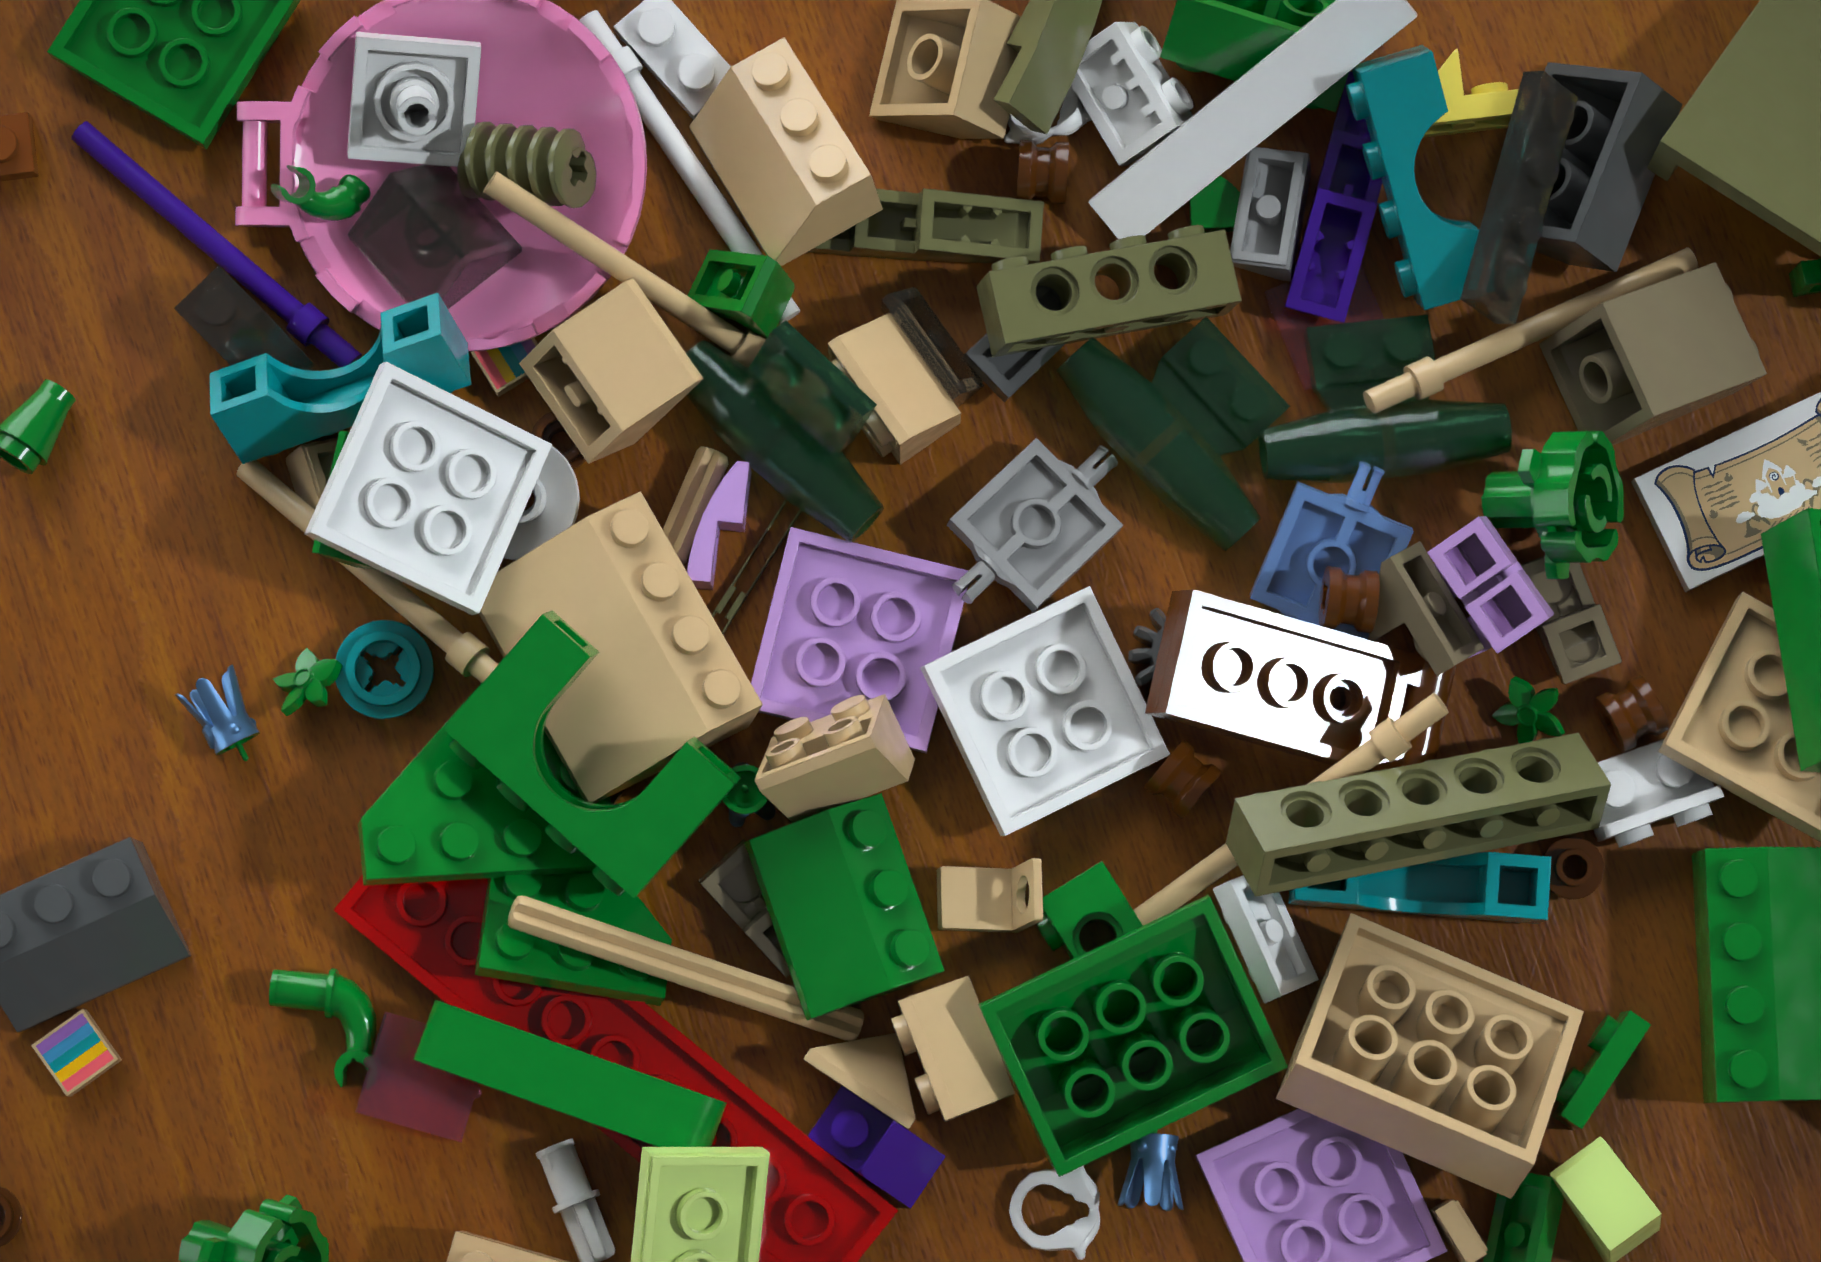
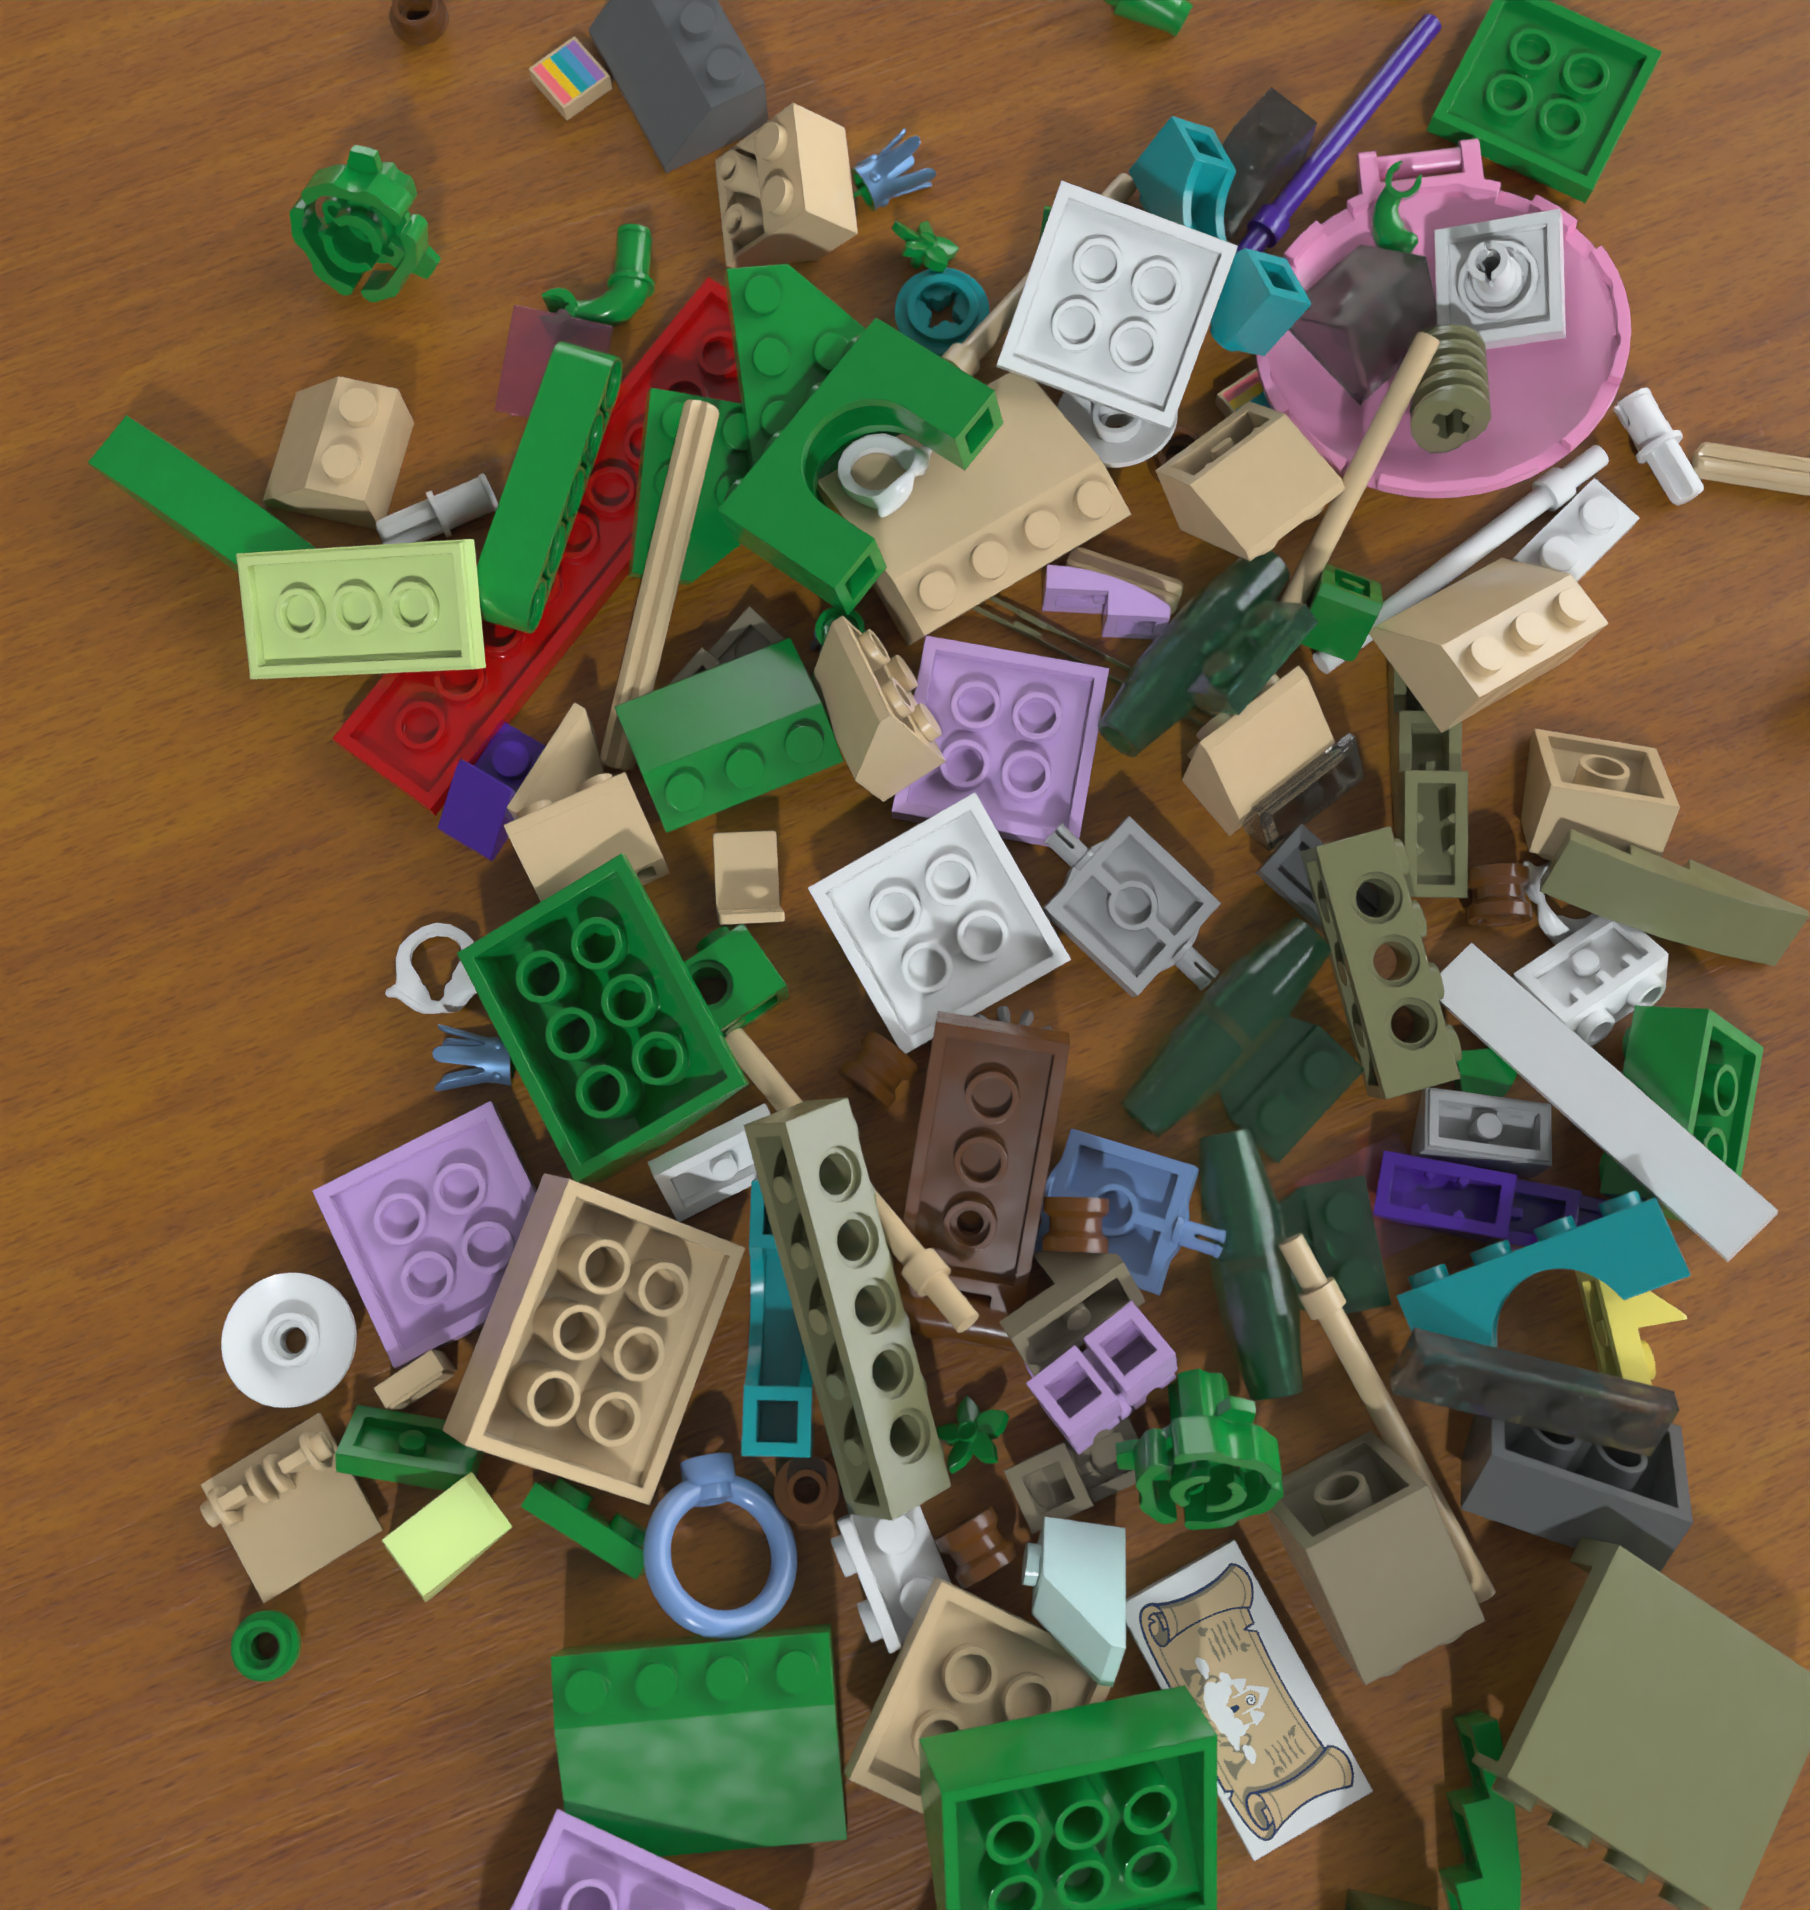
camera: 85 degrees right, 5 degrees down
(239, 825) = (786, 191): none -> tan slope
(575, 705) = (910, 458): none -> white piece
(1563, 954) = (705, 1483): none -> medium blue piece
(1676, 620) = (1080, 1591): none -> light aqua slope

